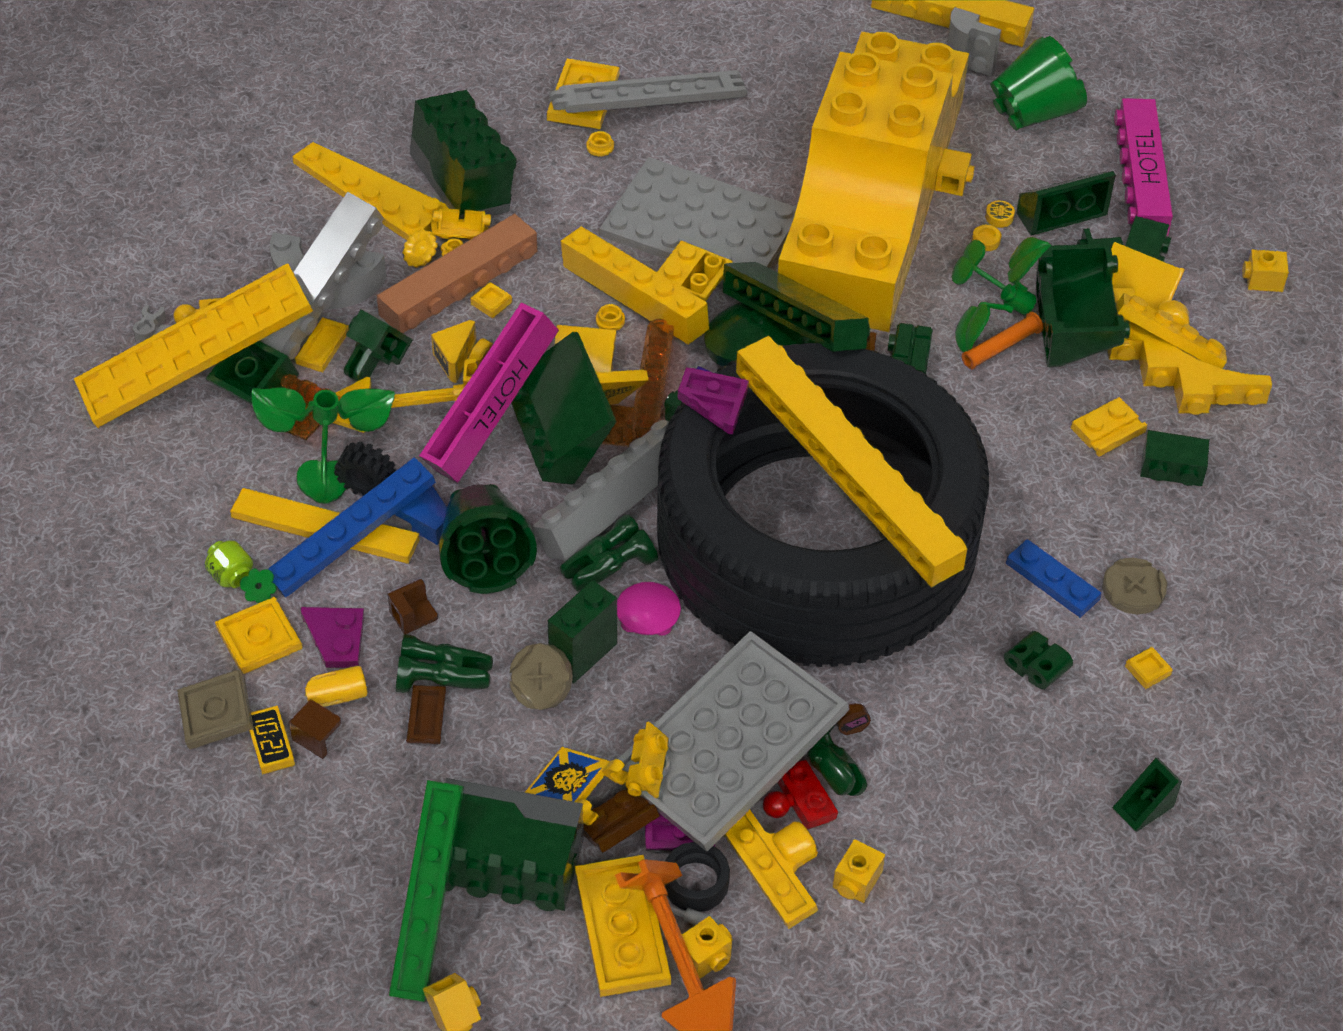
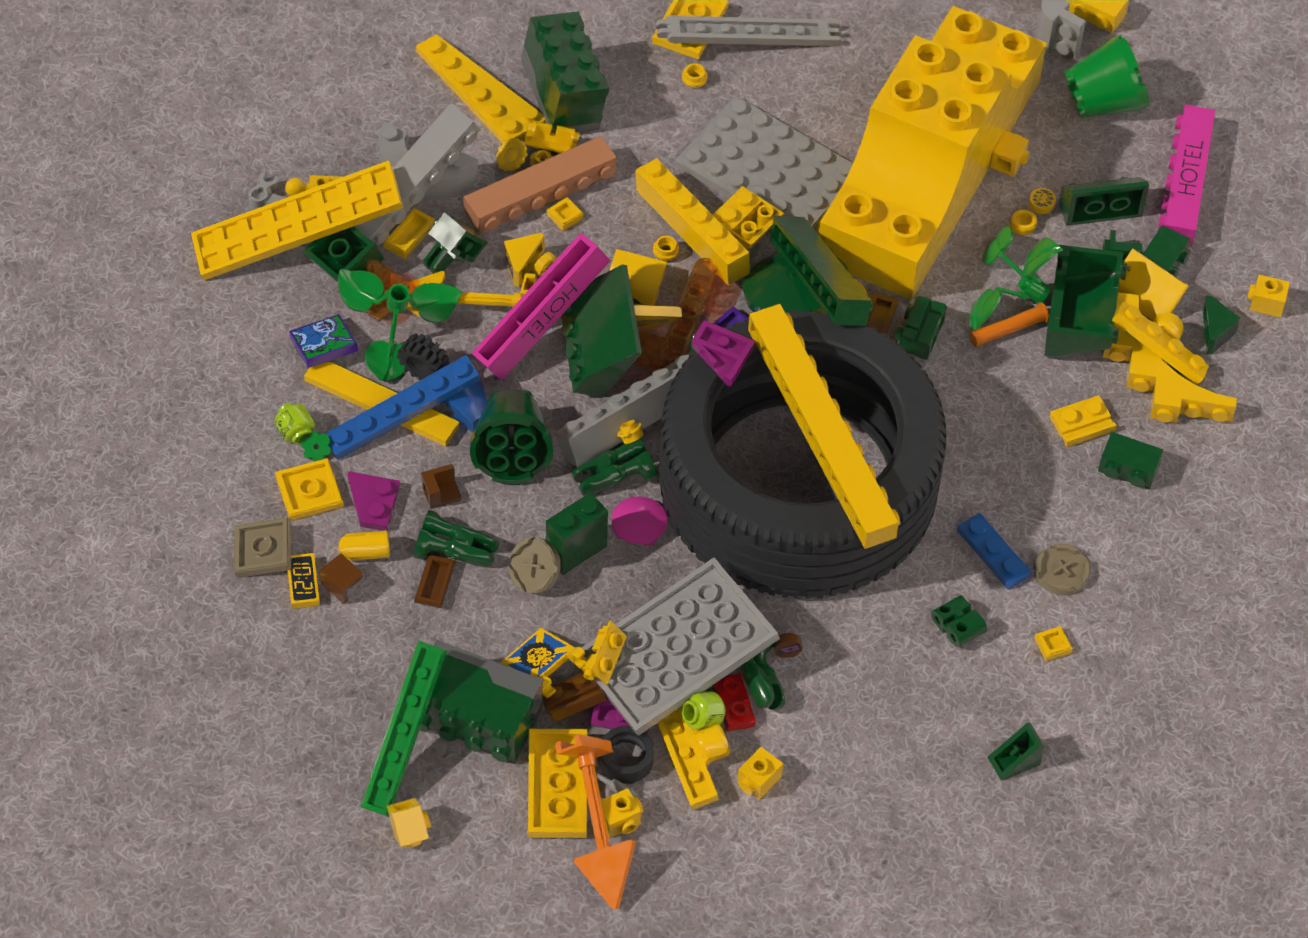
camera: 10 degrees right, 5 degrees up
(246, 470) = (323, 341): none -> tile
(618, 511) = (630, 431): none -> yellow plate
(777, 808) = (703, 710): none -> lime head
(1222, 305) = (1218, 323): none -> dark green slope

